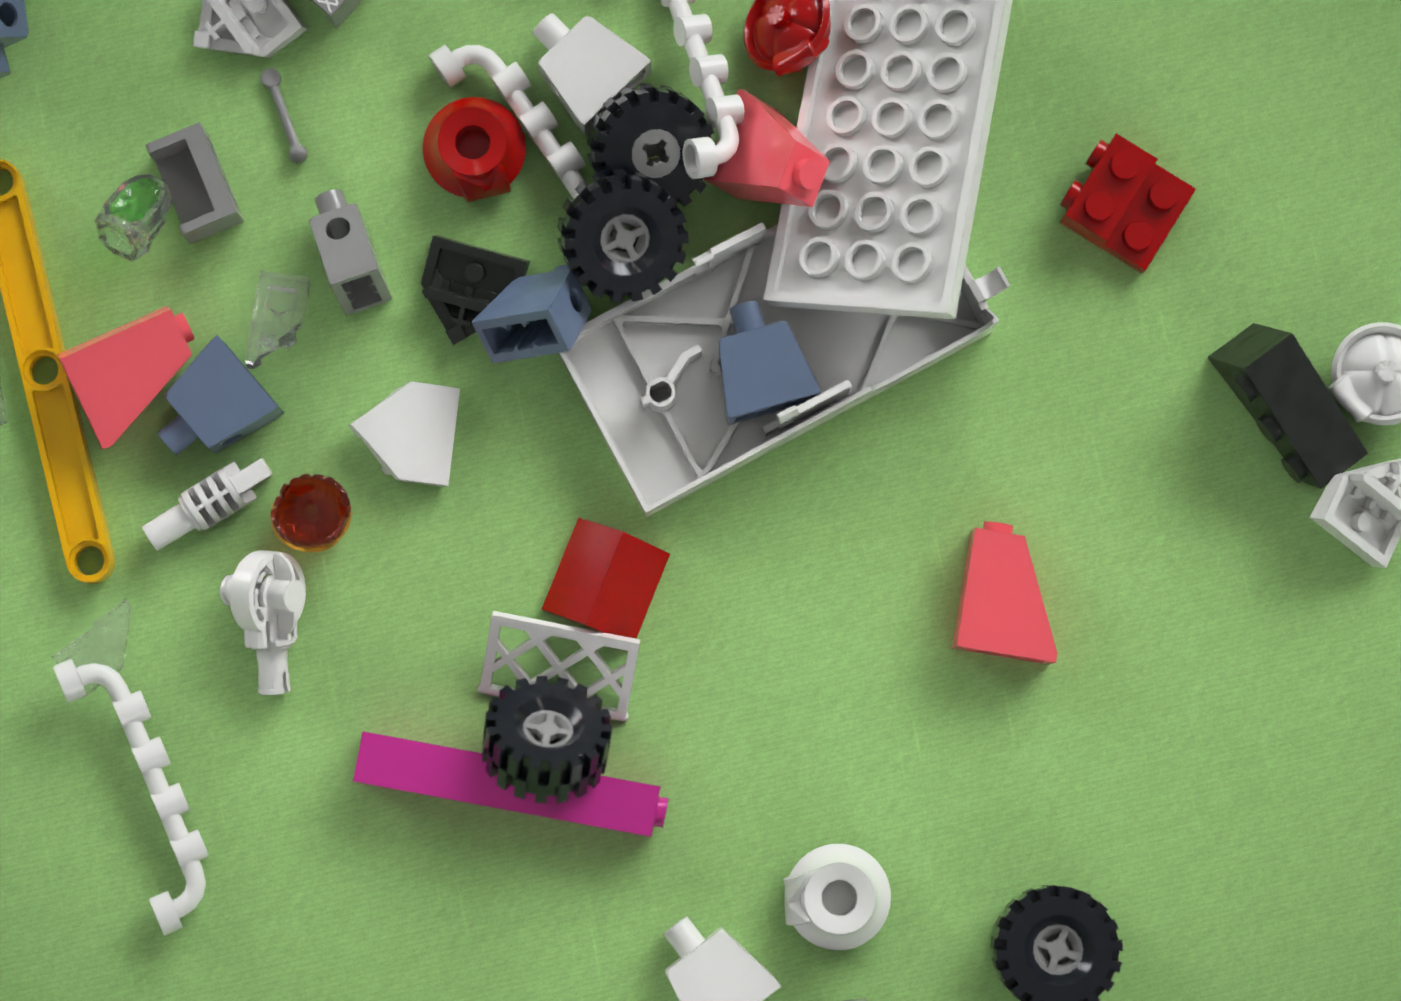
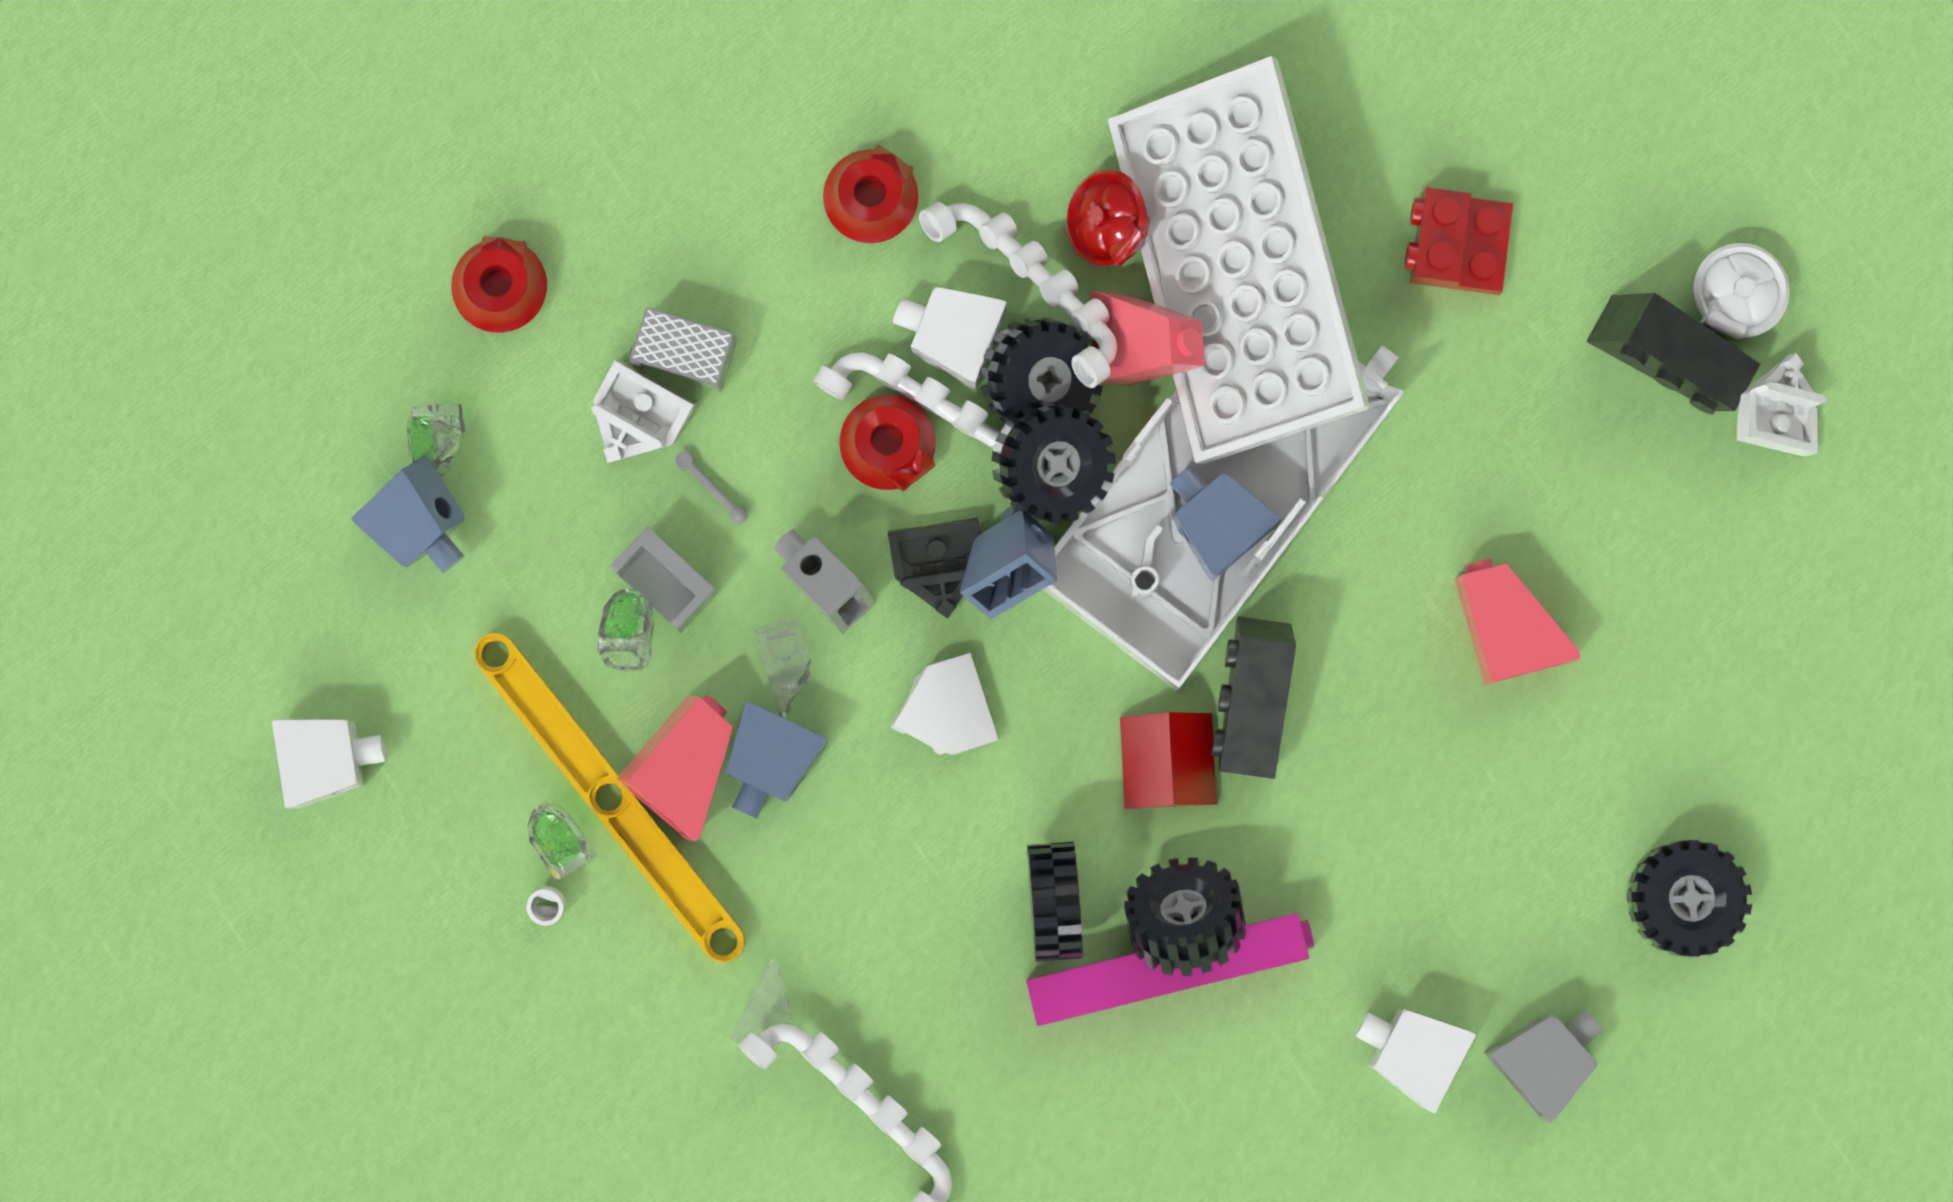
camera: 20 degrees left, 0 degrees up
(208, 502) = (802, 846): white hinge -> none
(267, 611) = (897, 916): white pin -> none
(311, 513) = (894, 815): clear red hair -> none
(424, 666) = (1054, 901): none -> black wheel
(540, 631) = (1137, 826): white window -> none
(715, 556) = (1255, 697): none -> pearl dark grey wedge
(837, 897) = (1486, 938): white piece -> none

